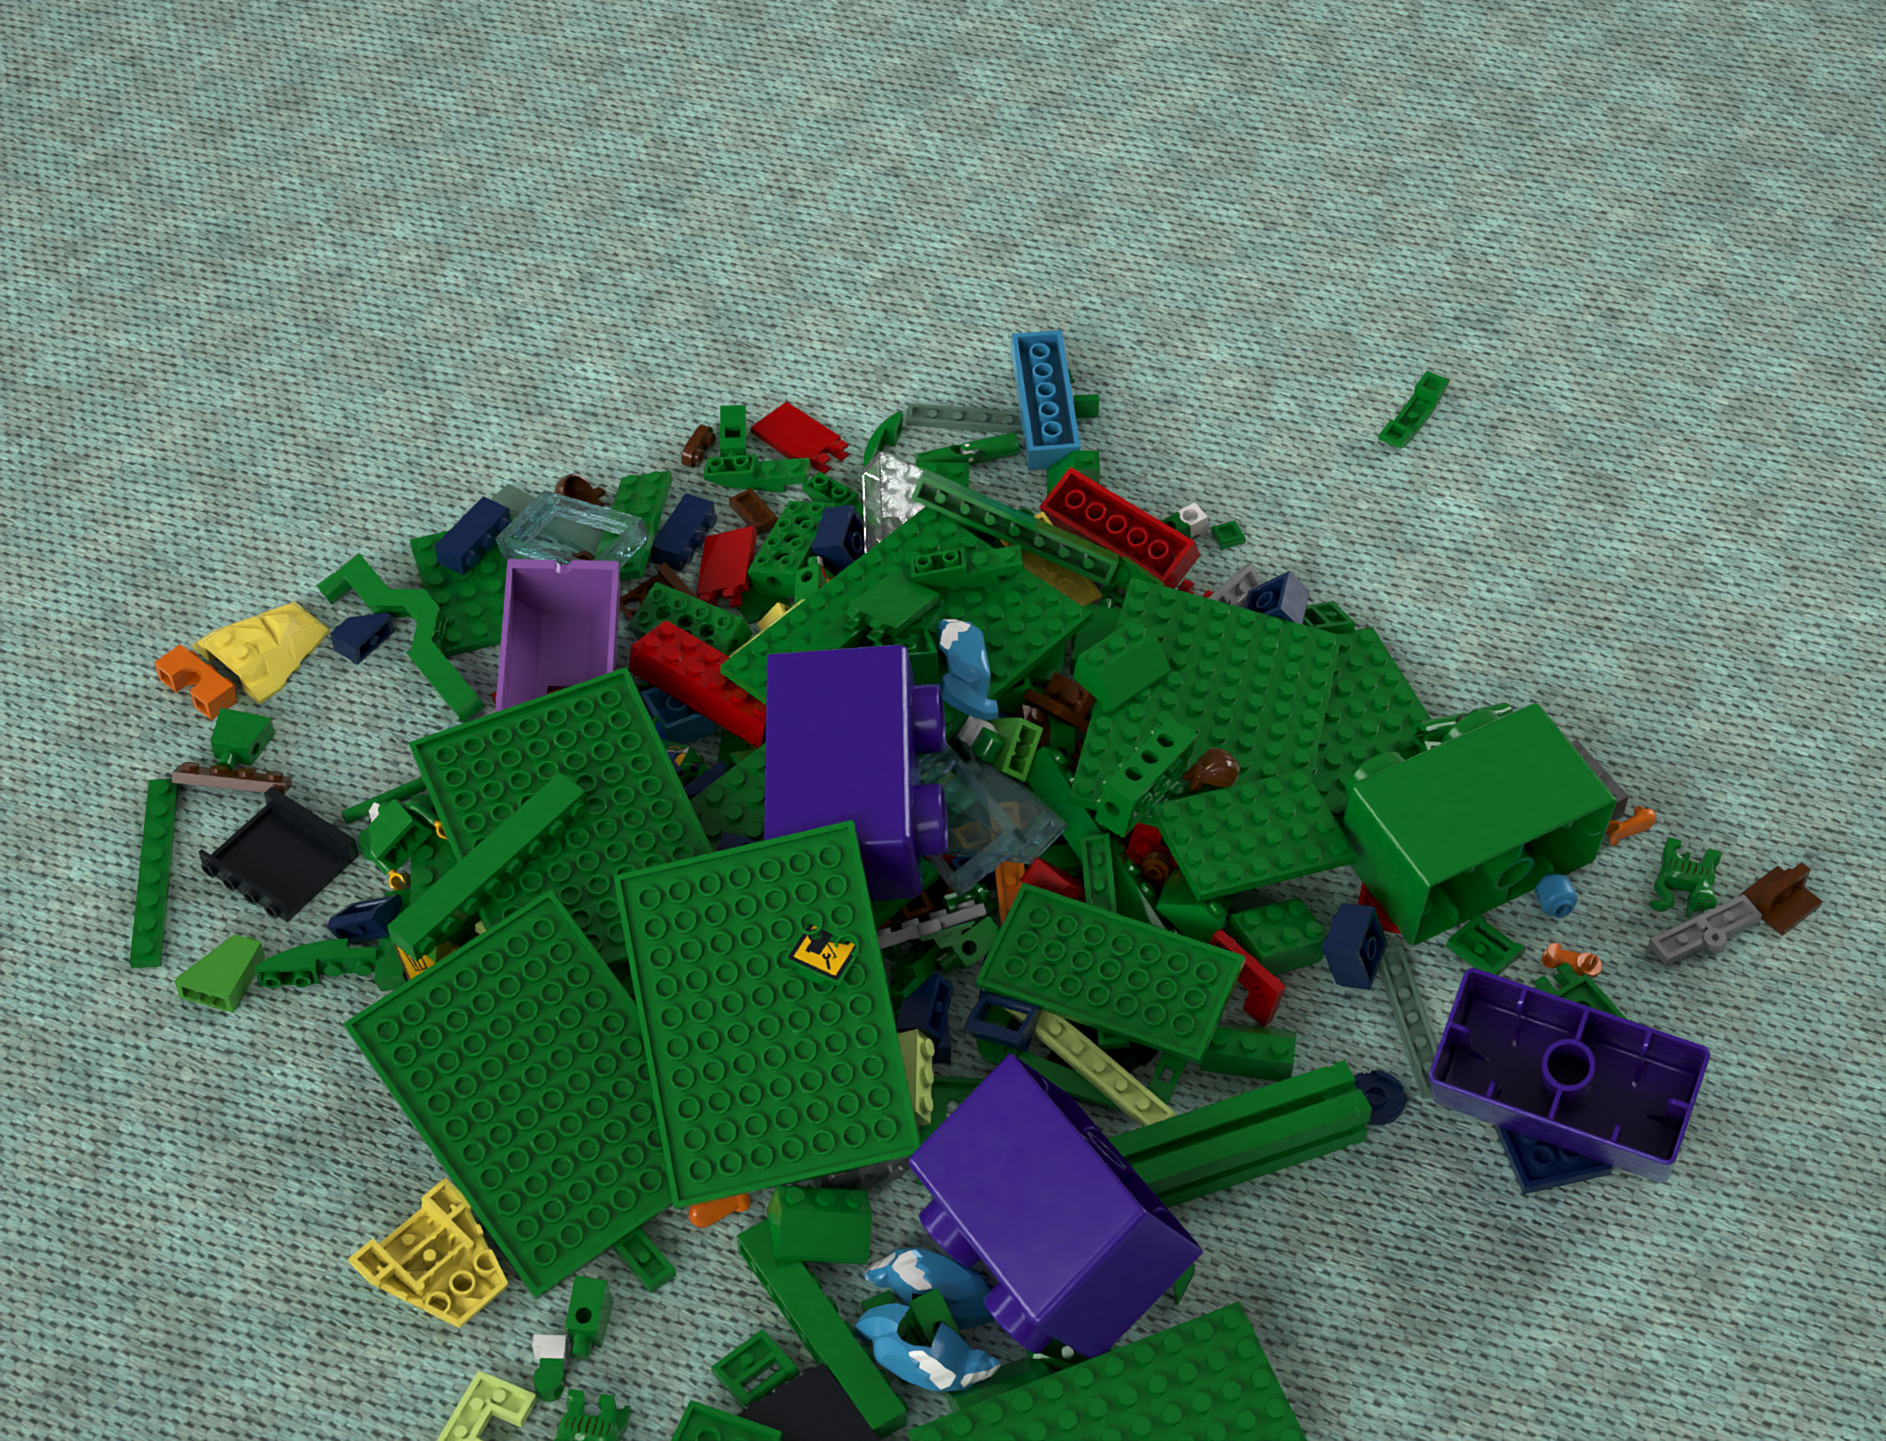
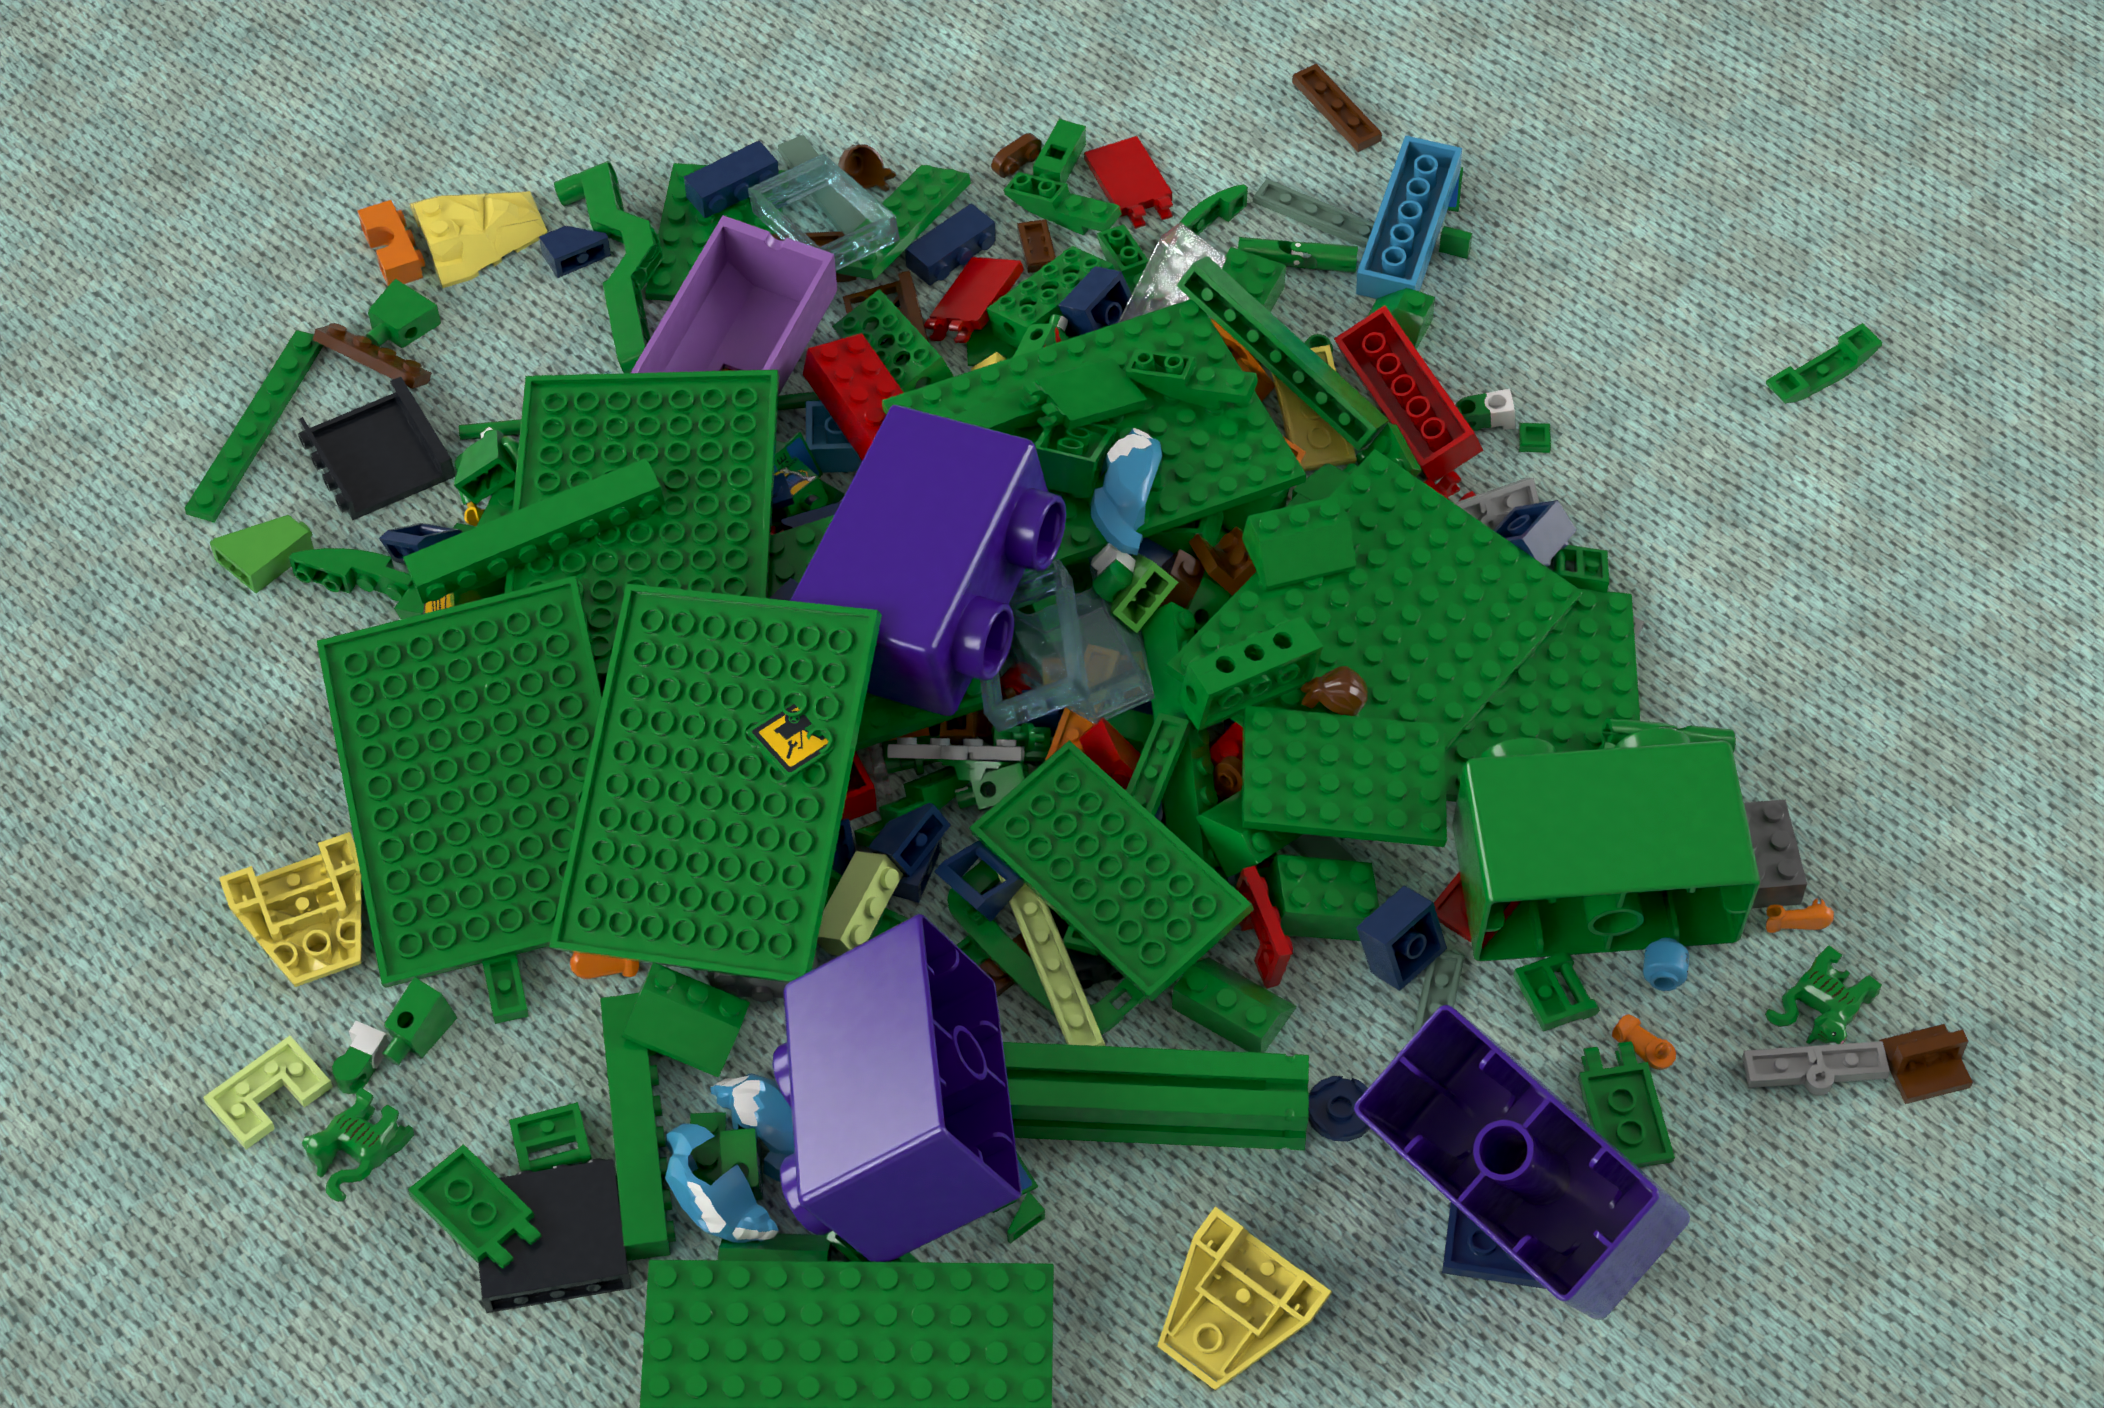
camera: 25 degrees right, 5 degrees up
(933, 332) = (1337, 107): none -> reddish brown plate
(1387, 1278) = (1235, 1302): none -> light yellow wedge

